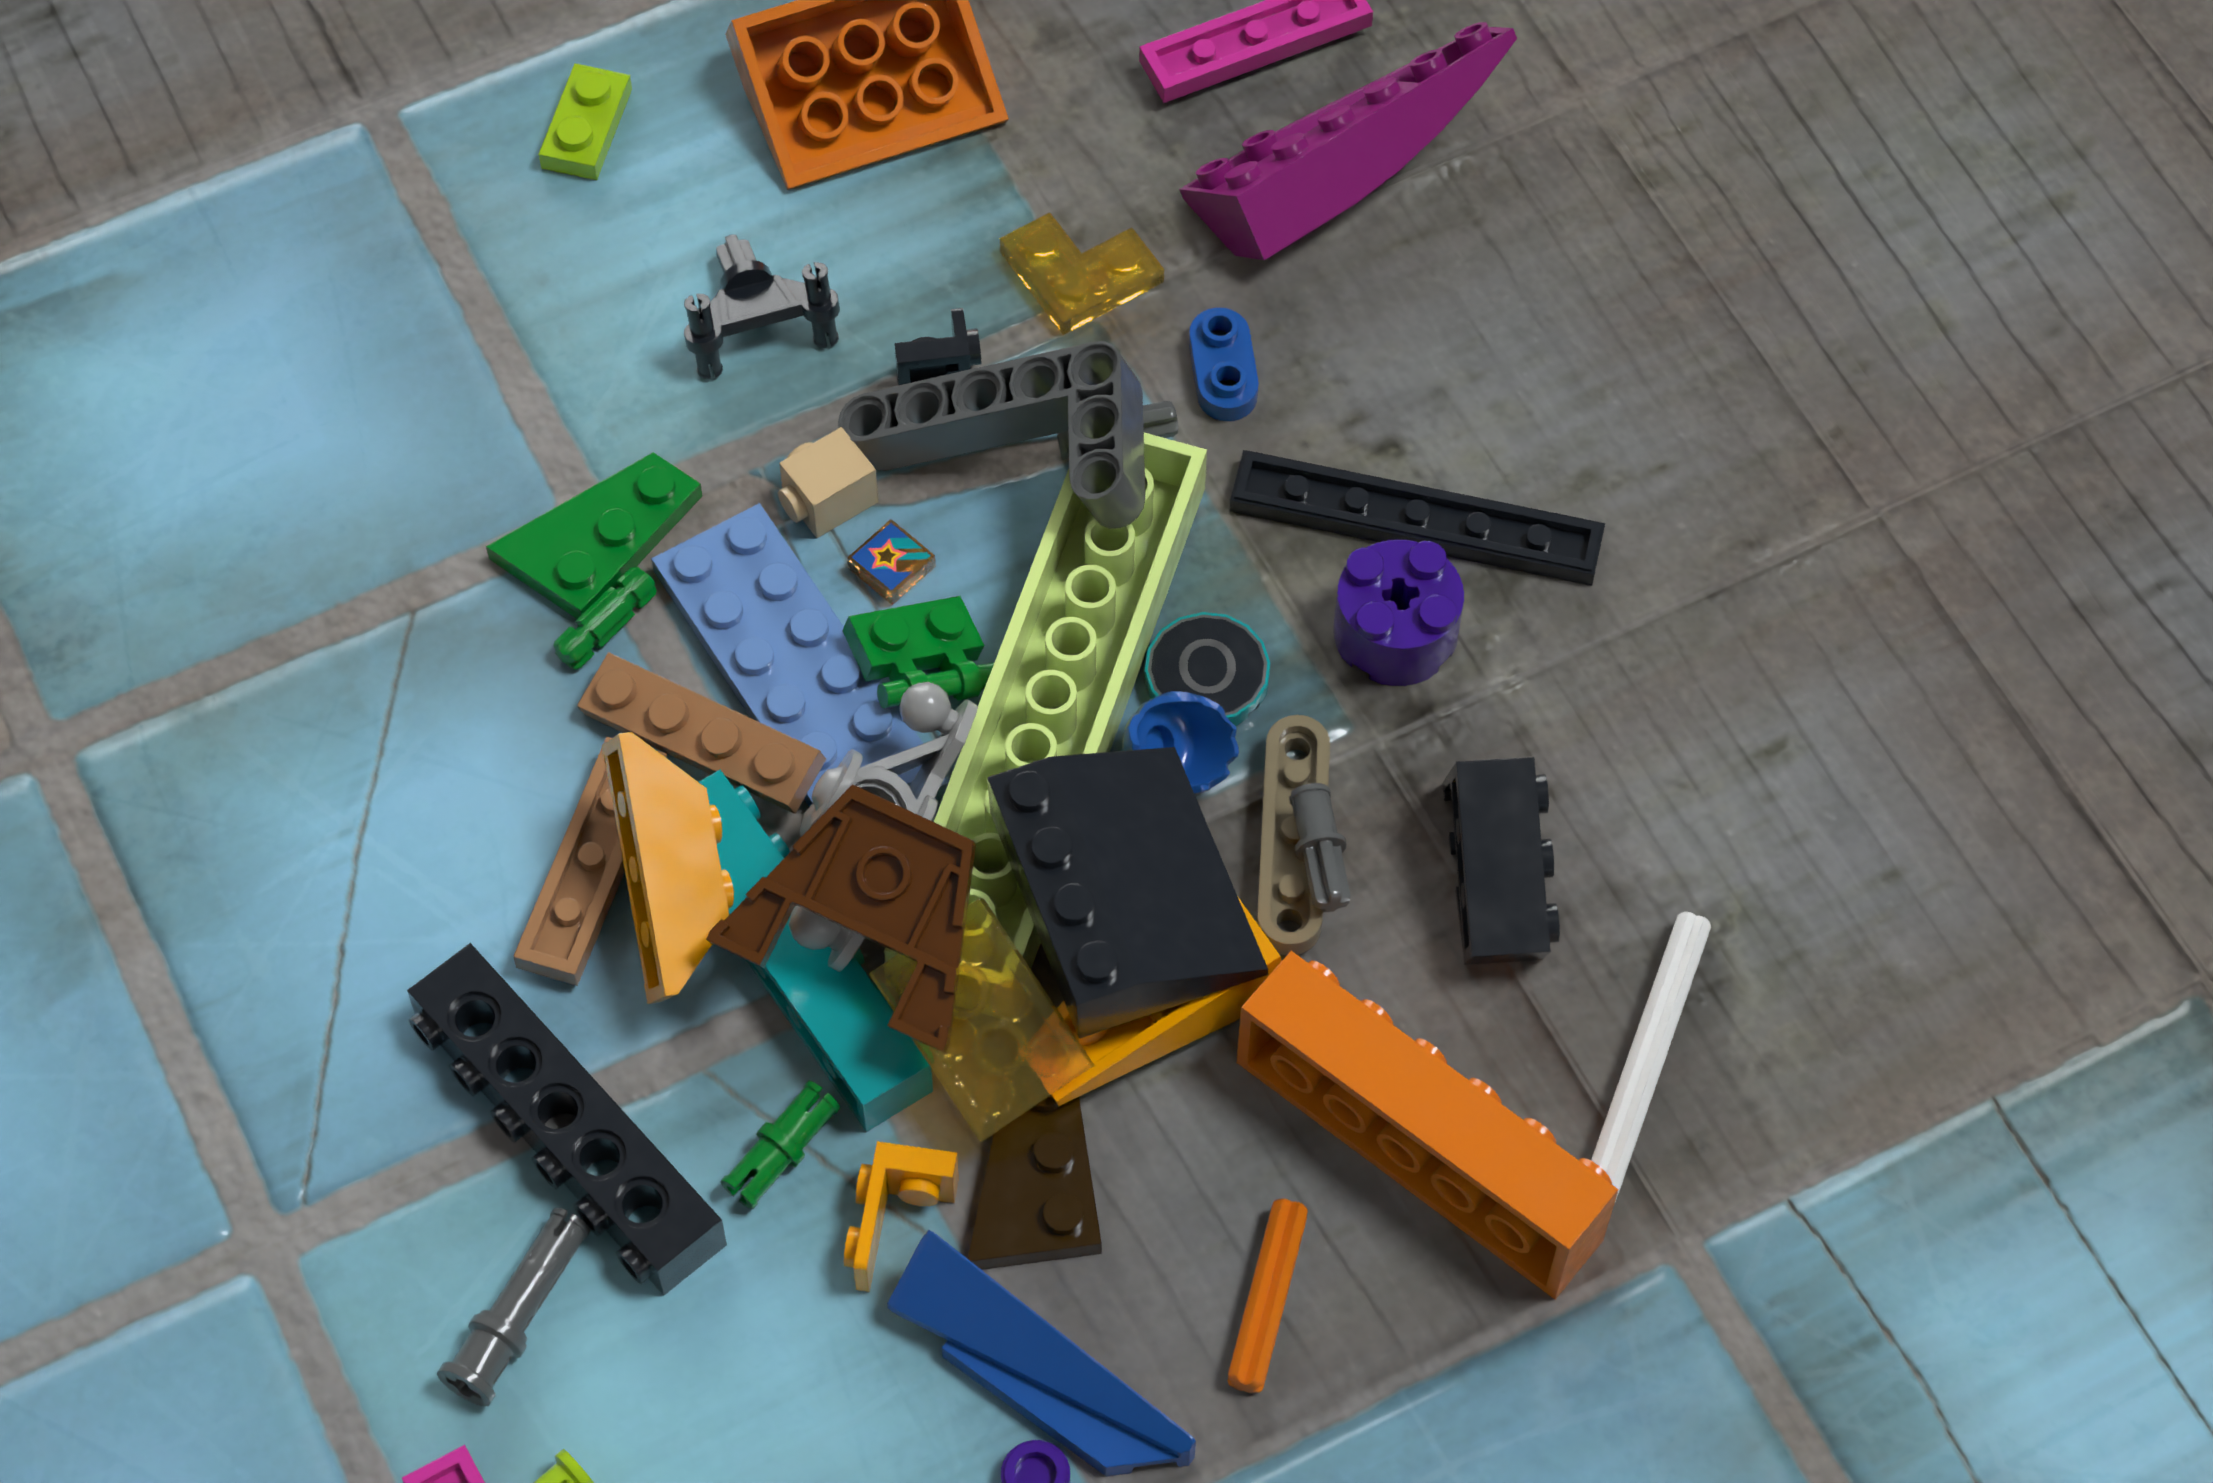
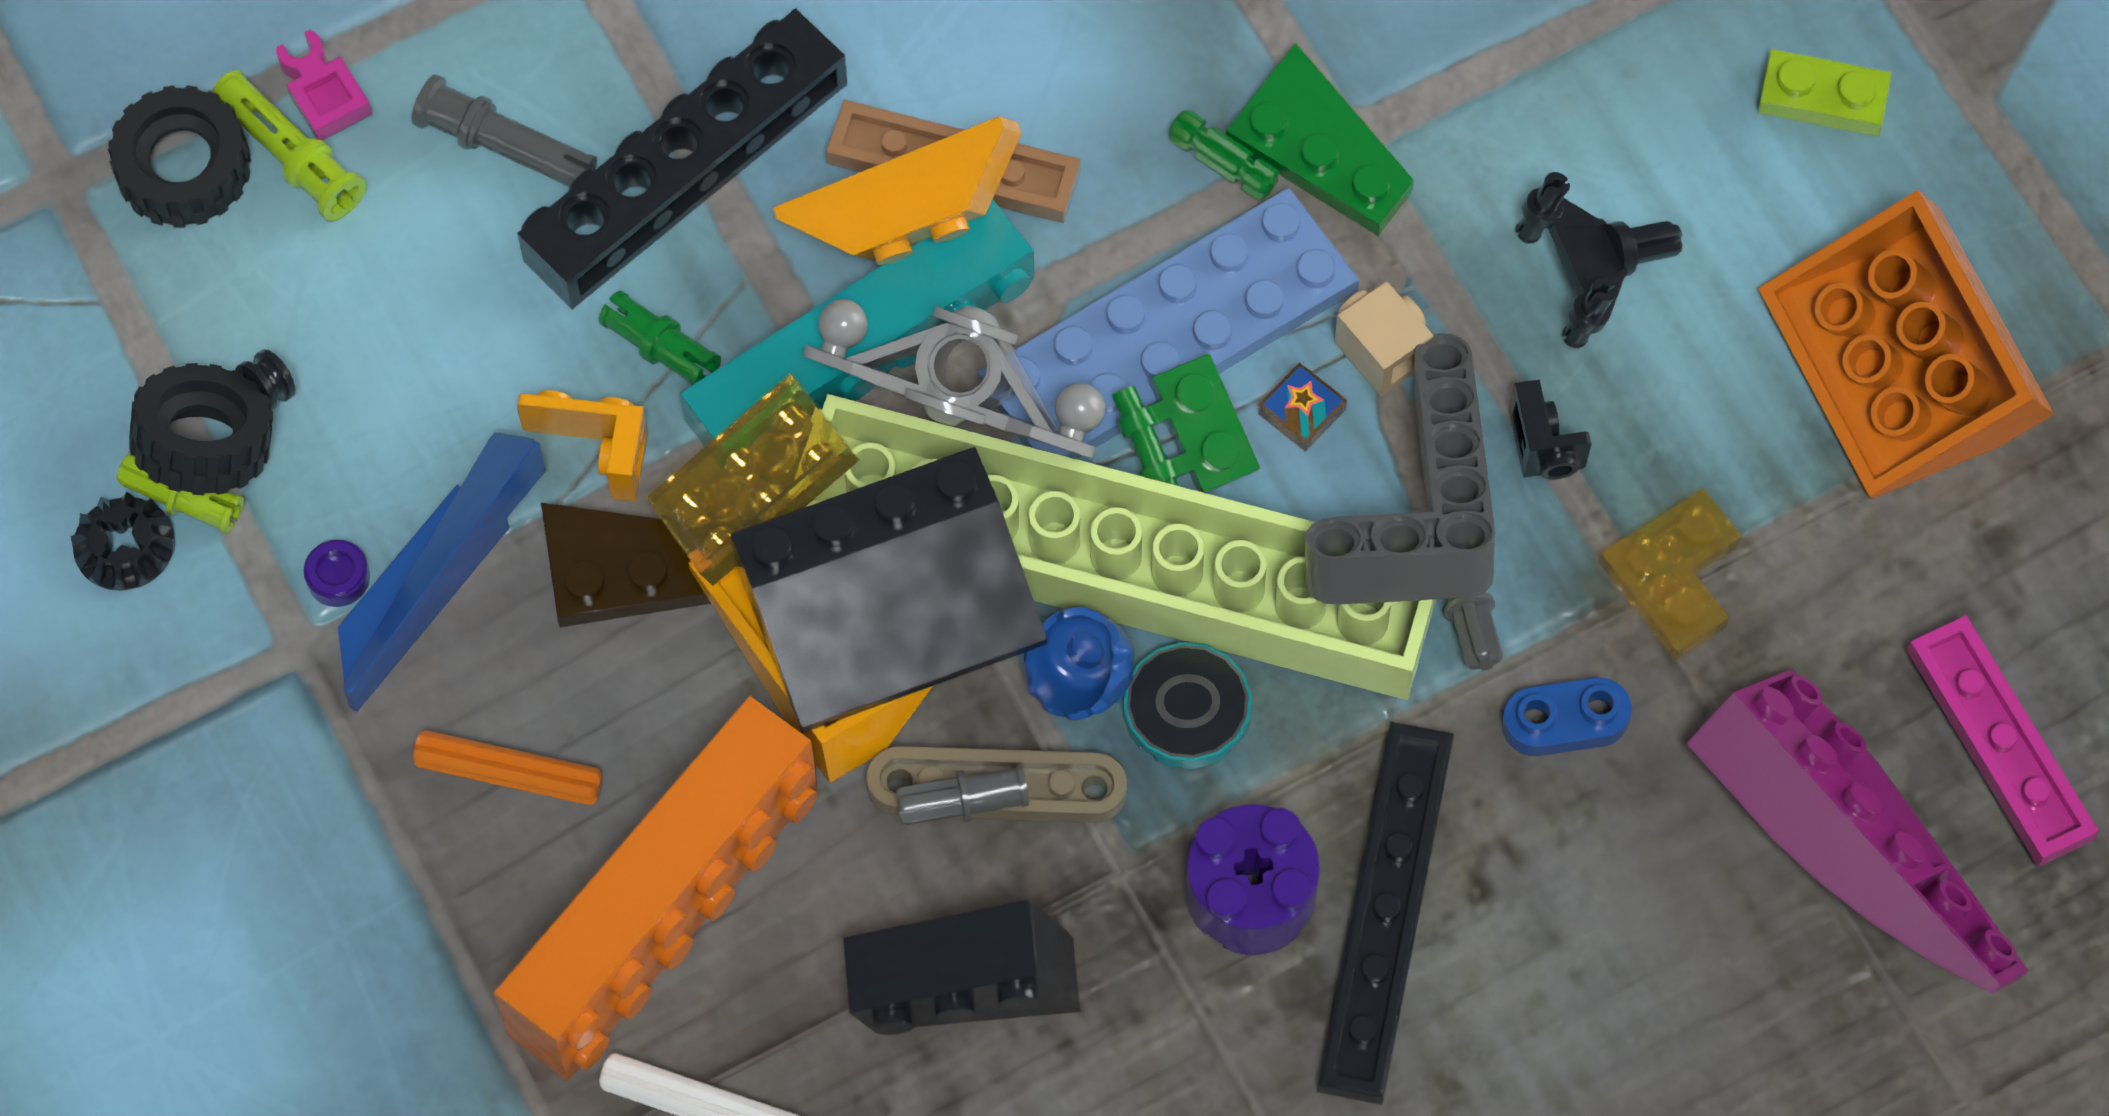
camera: 90 degrees right, 5 degrees up
(702, 732) = (1089, 242): medium nougat plate -> none
(882, 879) = (856, 364): reddish brown wing -> none

